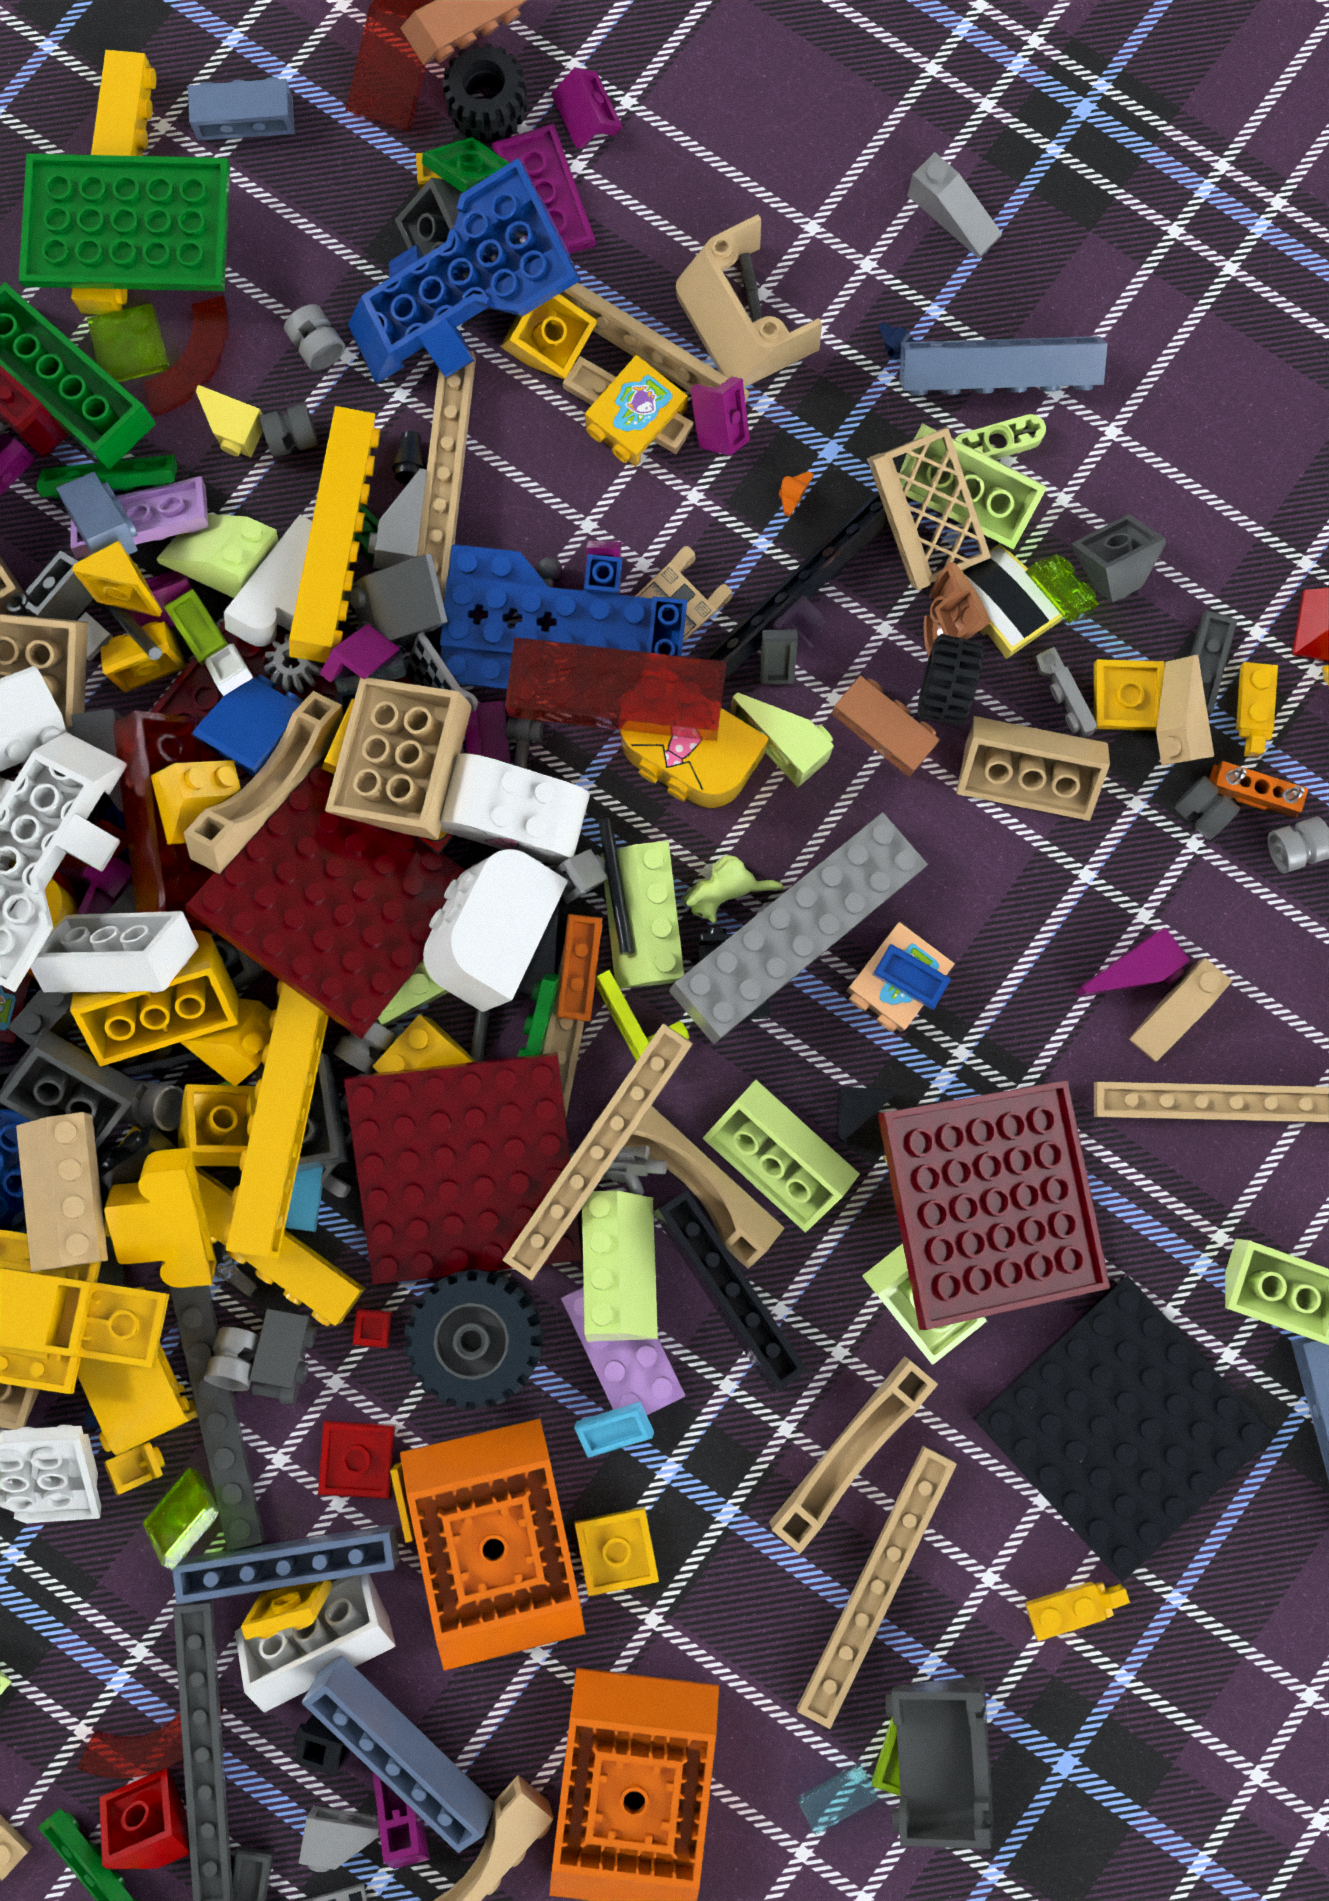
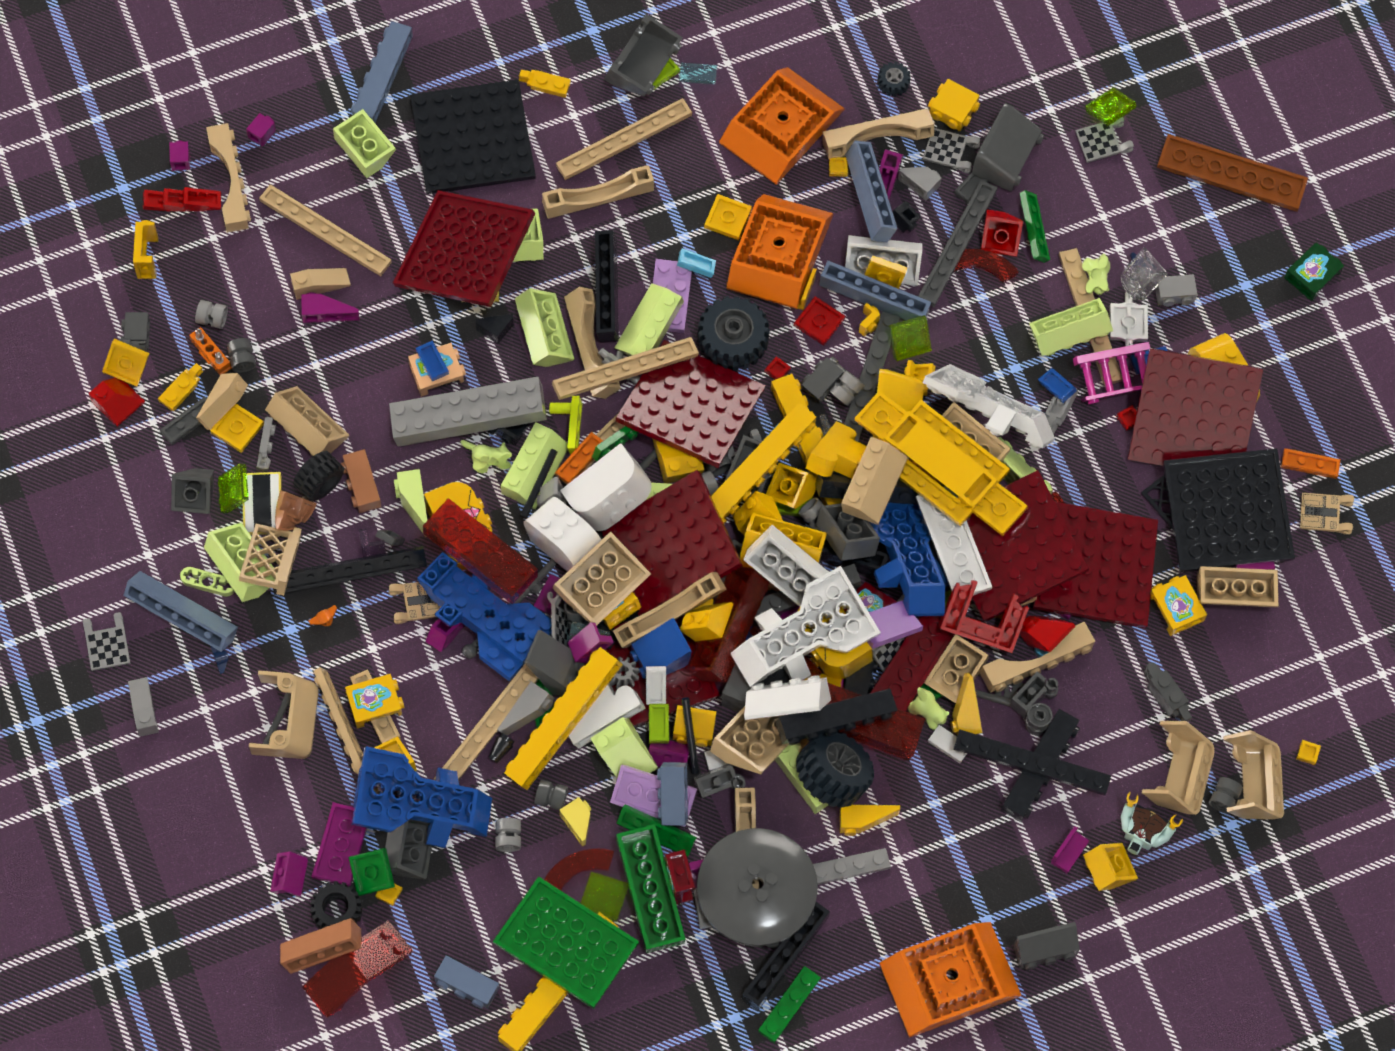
camera: 150 degrees left, 15 degrees down
(116, 580) = (681, 752): yellow slope -> none
(267, 1504) = (870, 323): none -> yellow bracket
(494, 1772) = (838, 166): none -> yellow tile
(721, 416) = (338, 664): magenta panel -> none
(1068, 263) = (107, 646): none -> light grey flag

